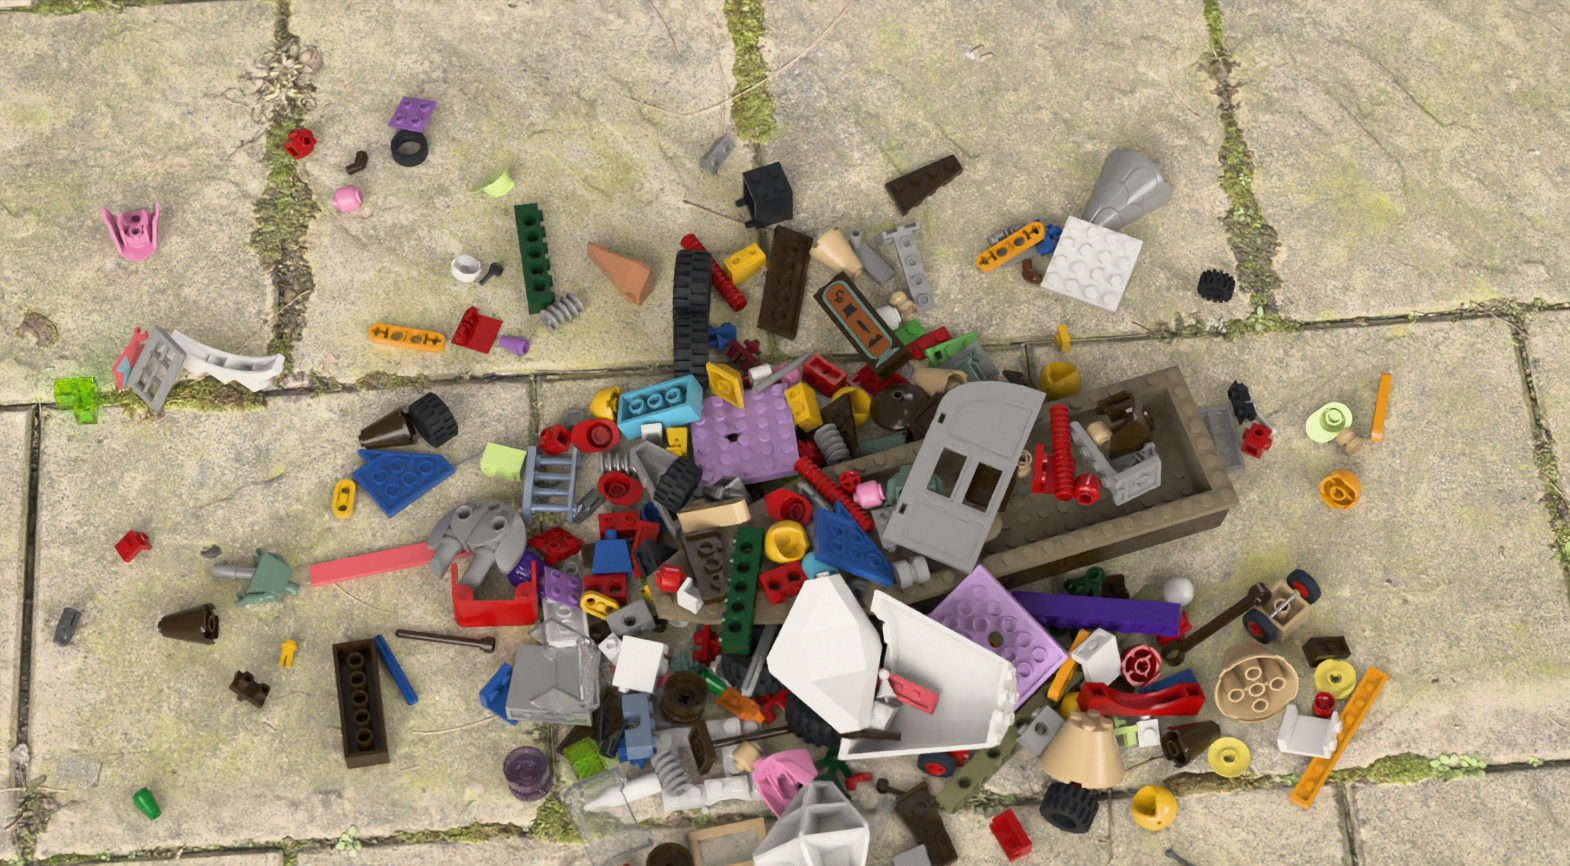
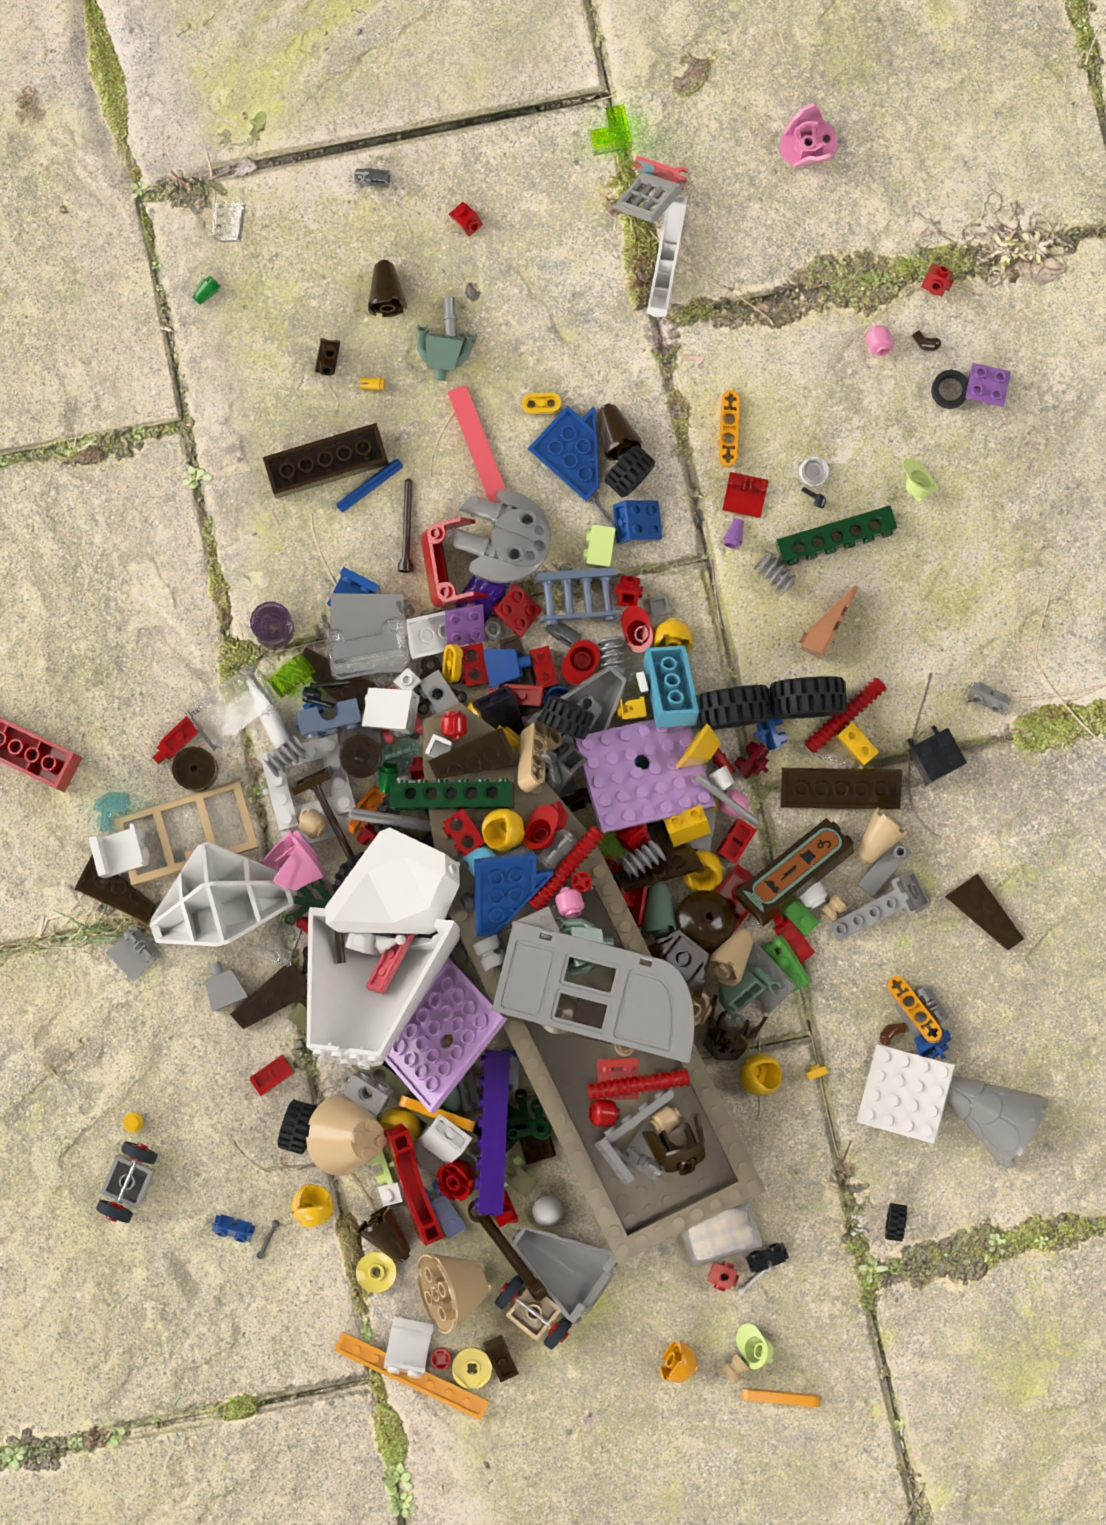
camera: 85 degrees right, 25 degrees up
(483, 427) = (637, 520): none -> blue bracket
(1235, 569) = (567, 1268): none -> light grey cone

